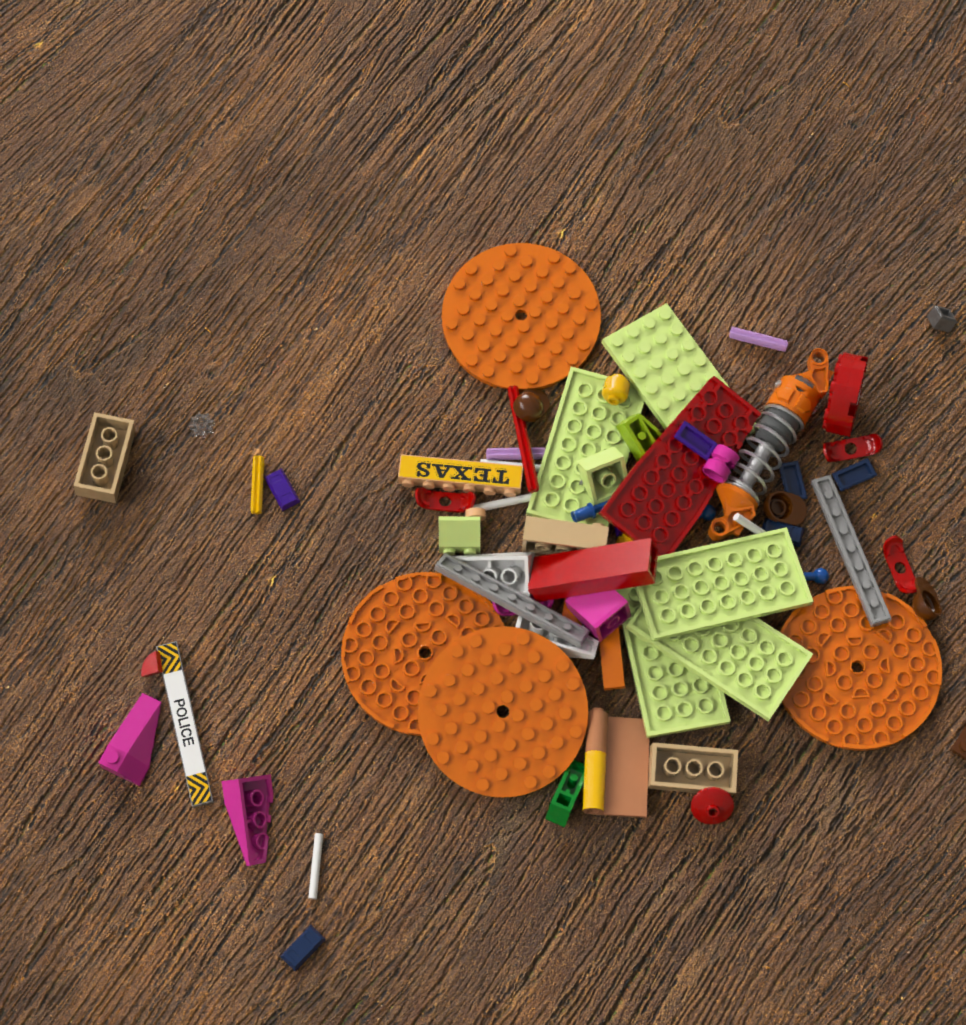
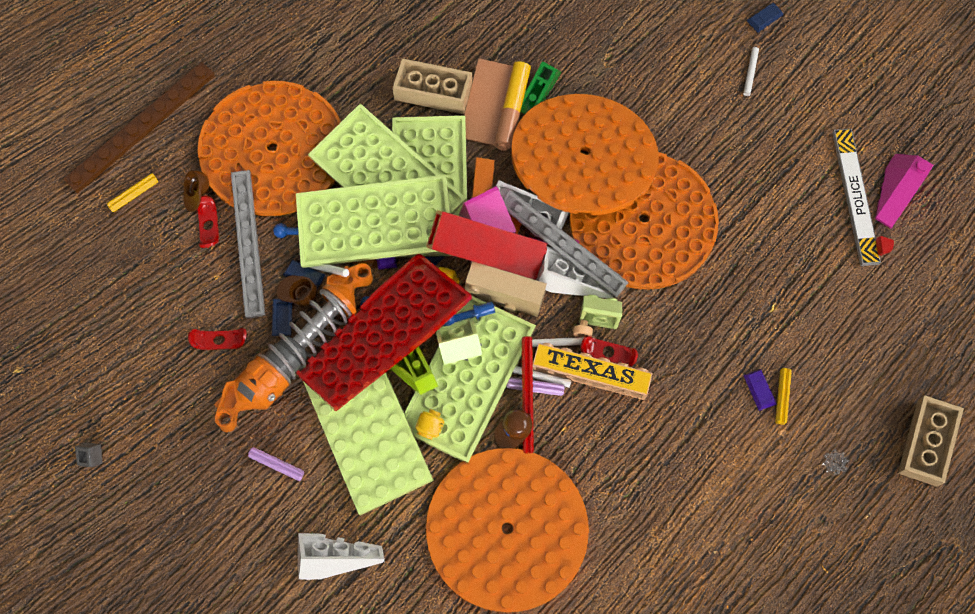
camera: 175 degrees left, 0 degrees up
(248, 810) = (804, 117): dark pink wedge -> none
(681, 265) = (328, 557): none -> white wedge
(695, 440) = (366, 347): dark purple tile -> none
(709, 799) = (423, 55): red dish -> none
(722, 461) = (349, 320): dark pink wheel -> none
(845, 394) = (208, 373): red piece -> none
(854, 474) = (223, 314): dark blue tile -> none

